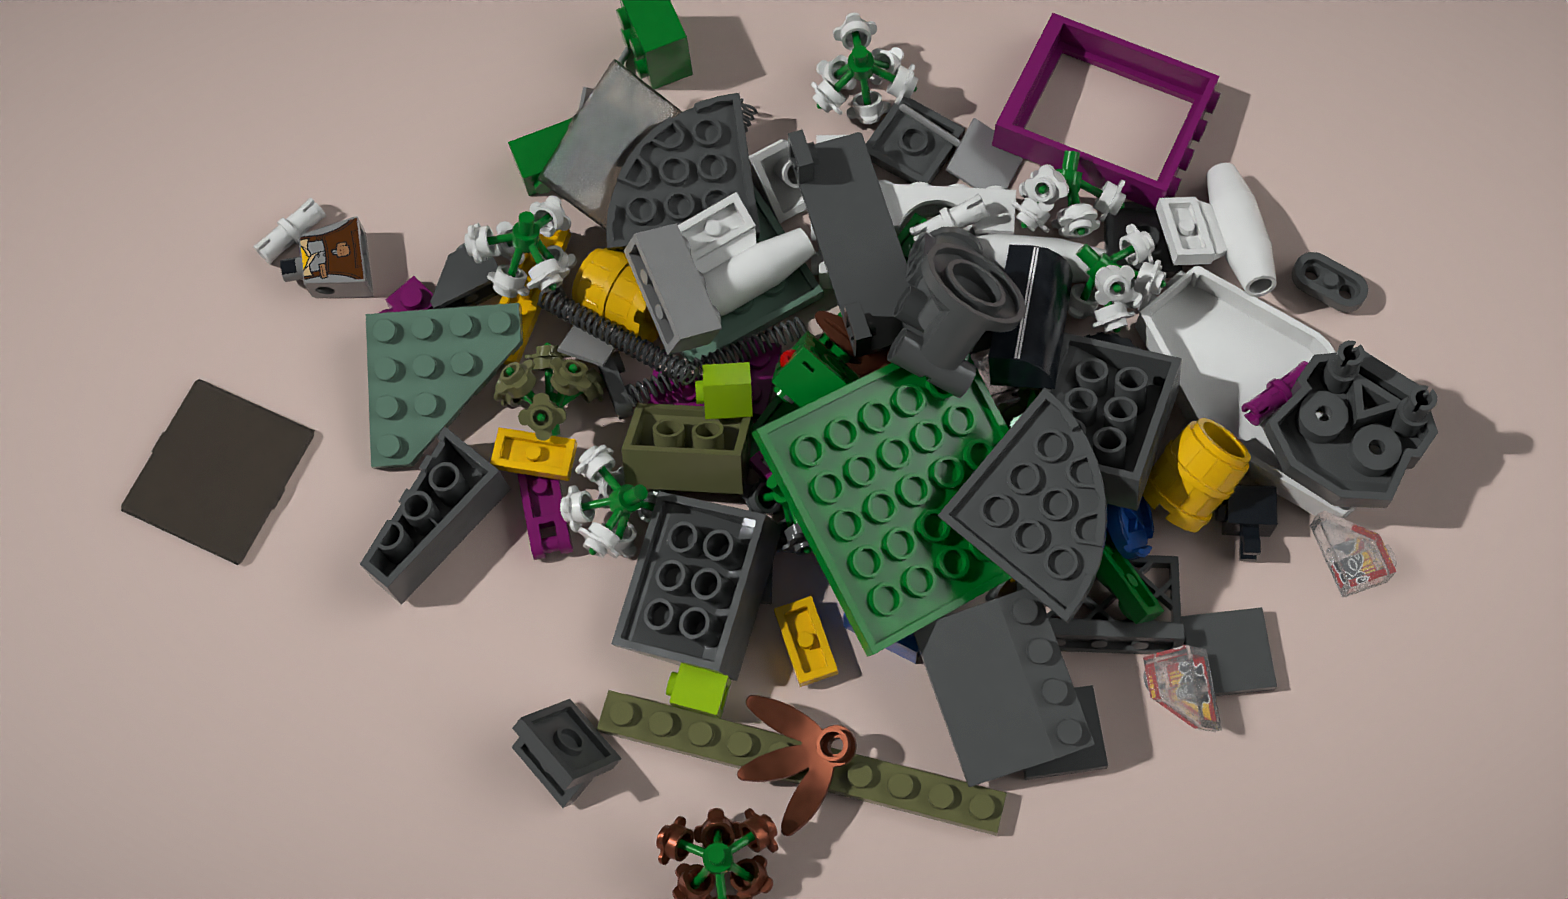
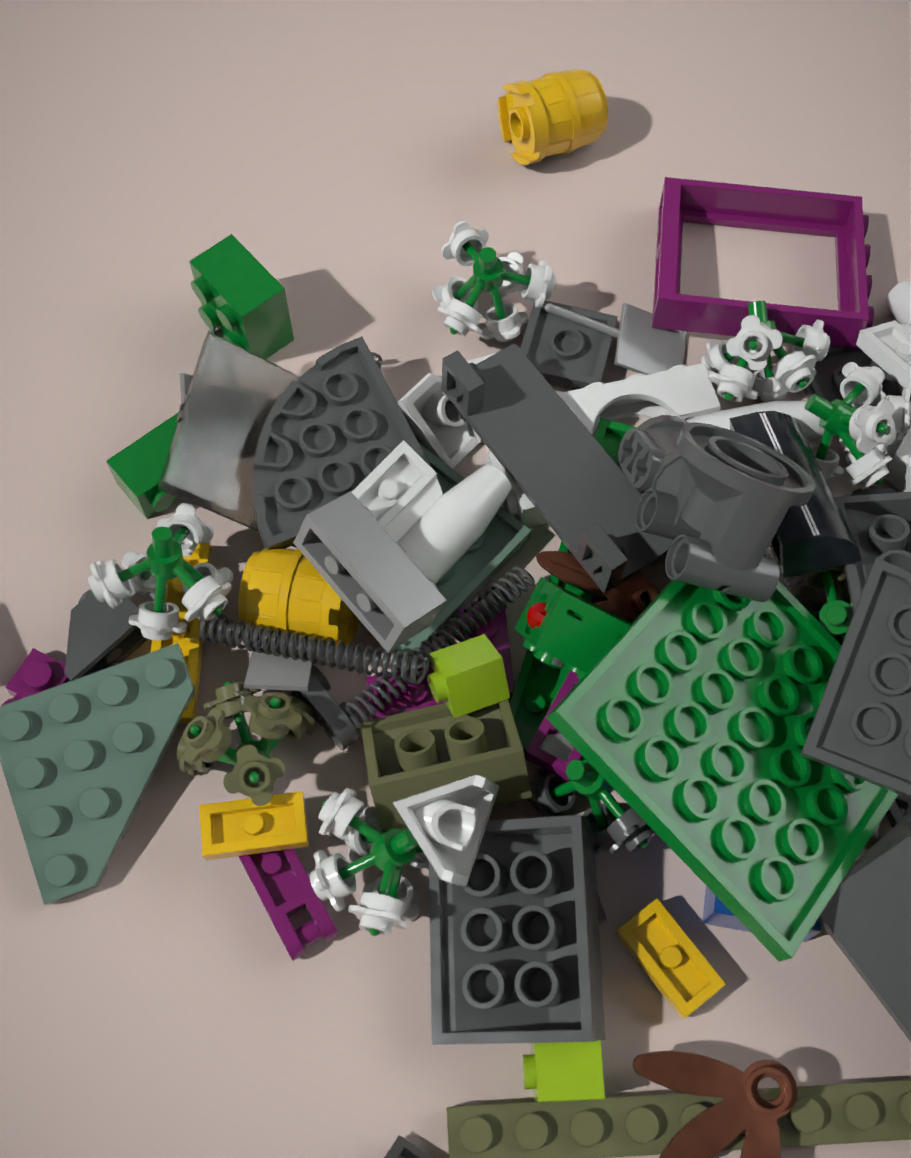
camera: 25 degrees left, 5 degrees down
(434, 516) = (146, 948): dark grey wedge -> none
(669, 492) = (451, 824): none -> white slope
(958, 216) = (660, 402): white pin -> none

